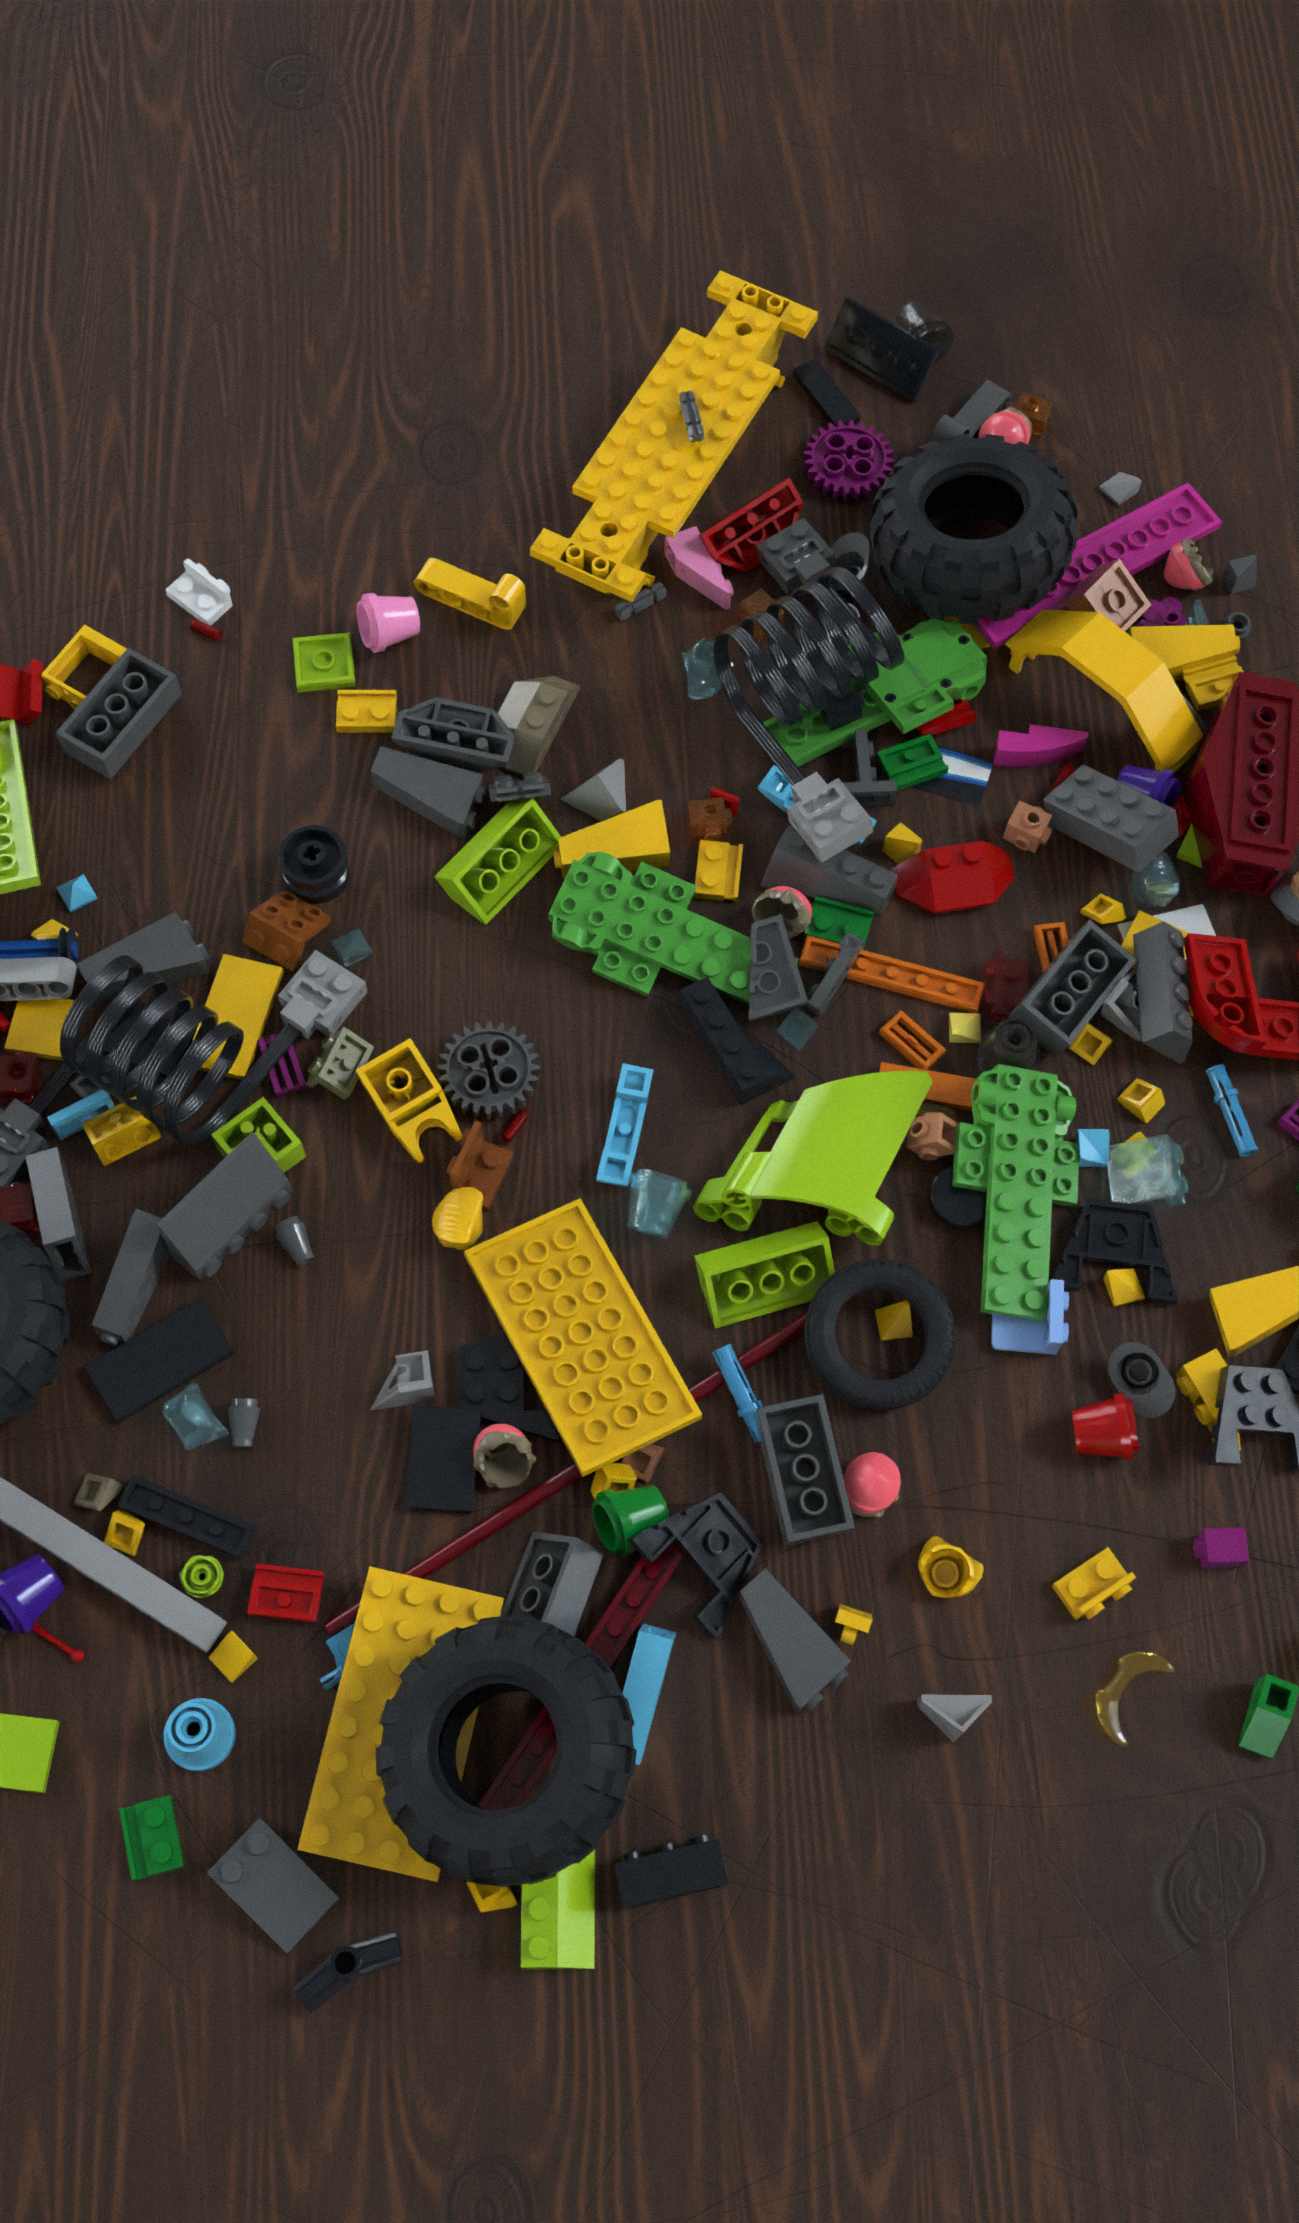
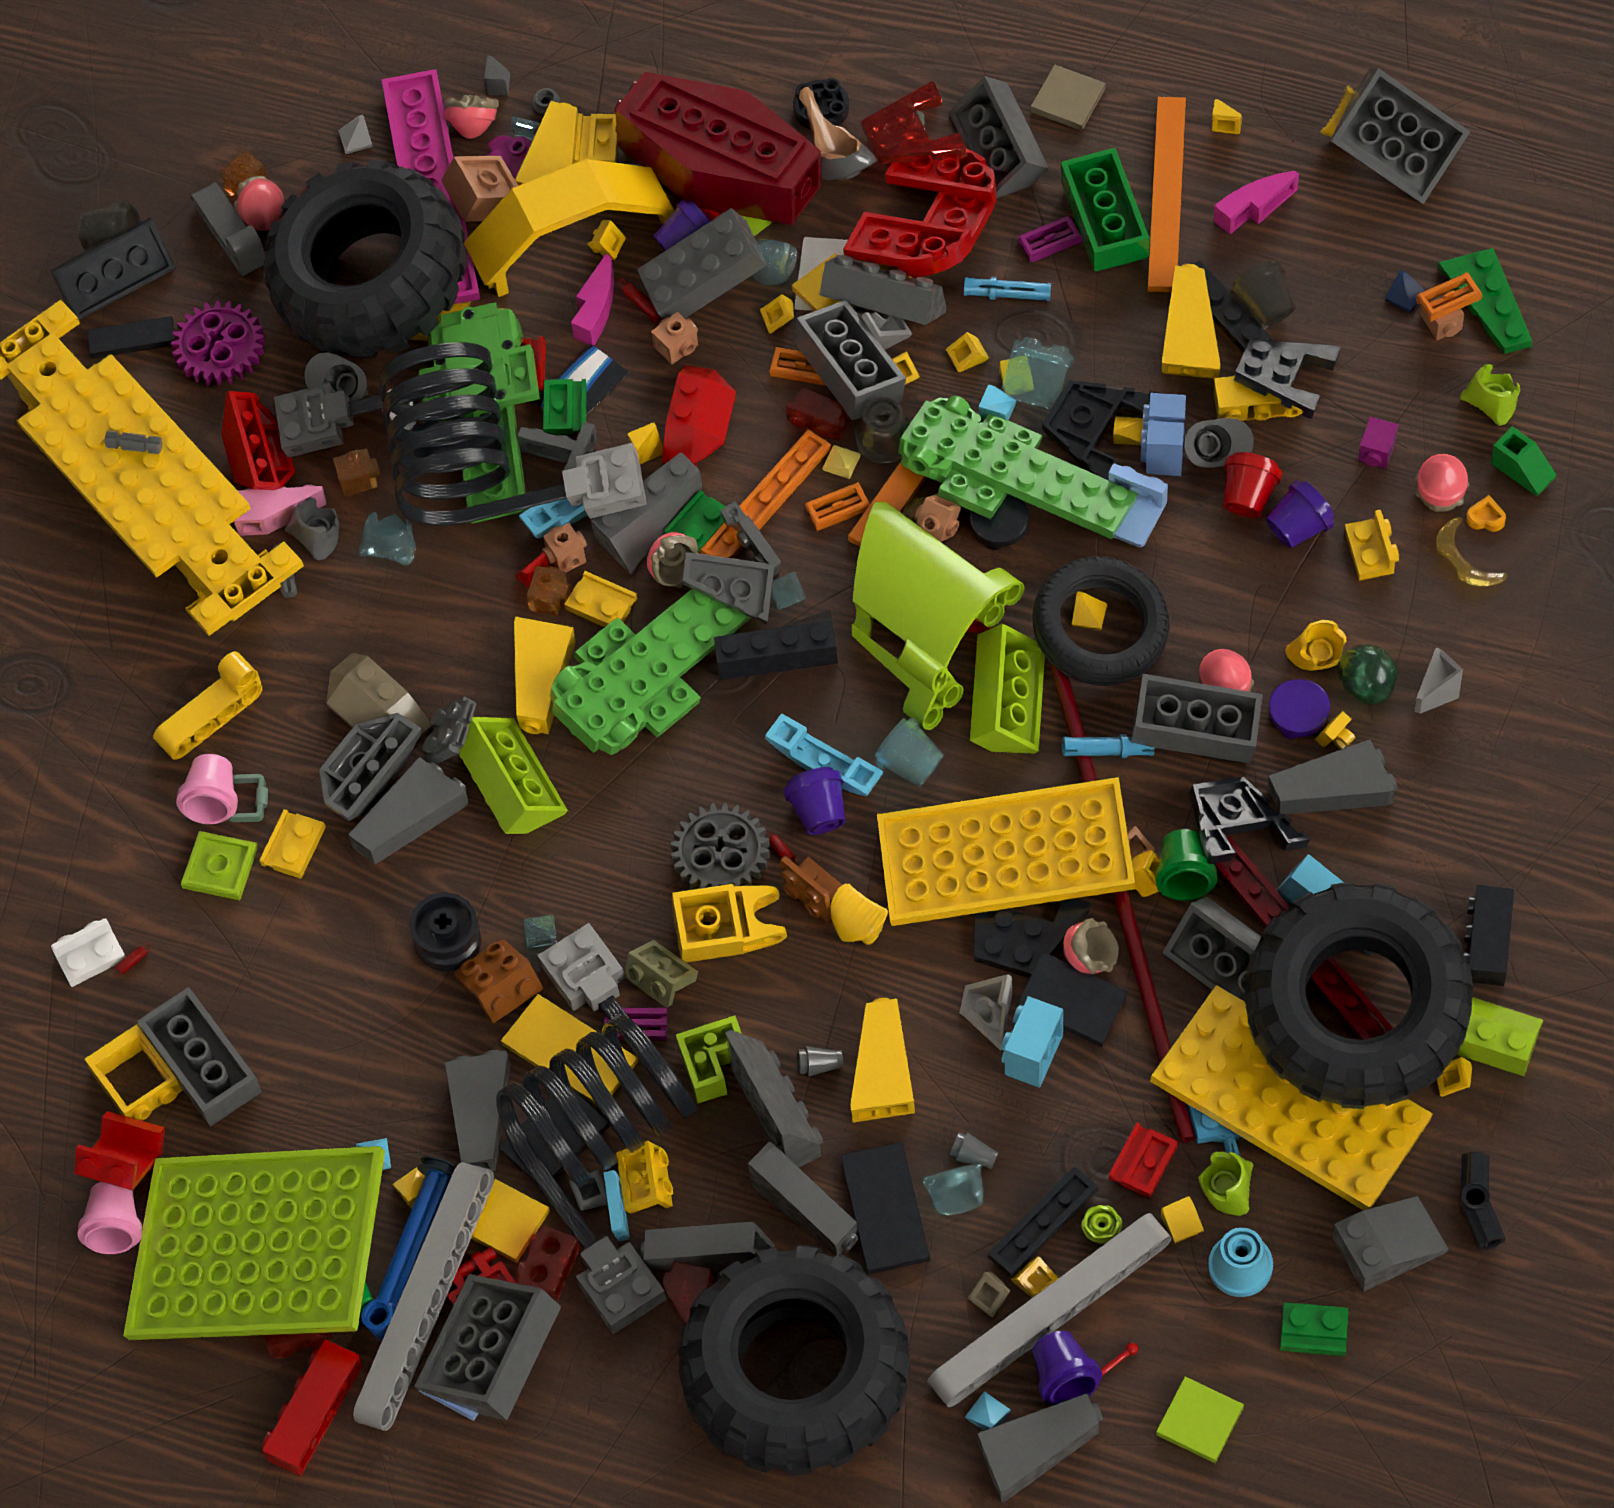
camera: 60 degrees left, 5 degrees down
(288, 1689) = (1227, 1183): none -> lime hair
(310, 1300) = (882, 1071): none -> yellow slope
(372, 1434) = (1032, 1041): none -> medium azure brick
(403, 669) = (261, 798): none -> sand green piece
(571, 1136) = (817, 799): none -> dark purple piece
(602, 794) = (478, 667): light grey slope -> none
(691, 607) = (315, 528): none -> dark grey hair
(756, 816) = (564, 547): none -> nougat brick
(867, 1574) = (1299, 708): none -> dark purple tile
(937, 1632) = (1368, 673): none -> clear green piece
(1093, 1494) = (1300, 515): none -> dark purple piece
(1109, 731) = (607, 239): none -> yellow tile
(1126, 1319) = (1163, 434): none -> medium blue piece
(1189, 1697) = (1486, 515): none -> light orange tile
(1203, 1634) = (1441, 482): none -> coral hair

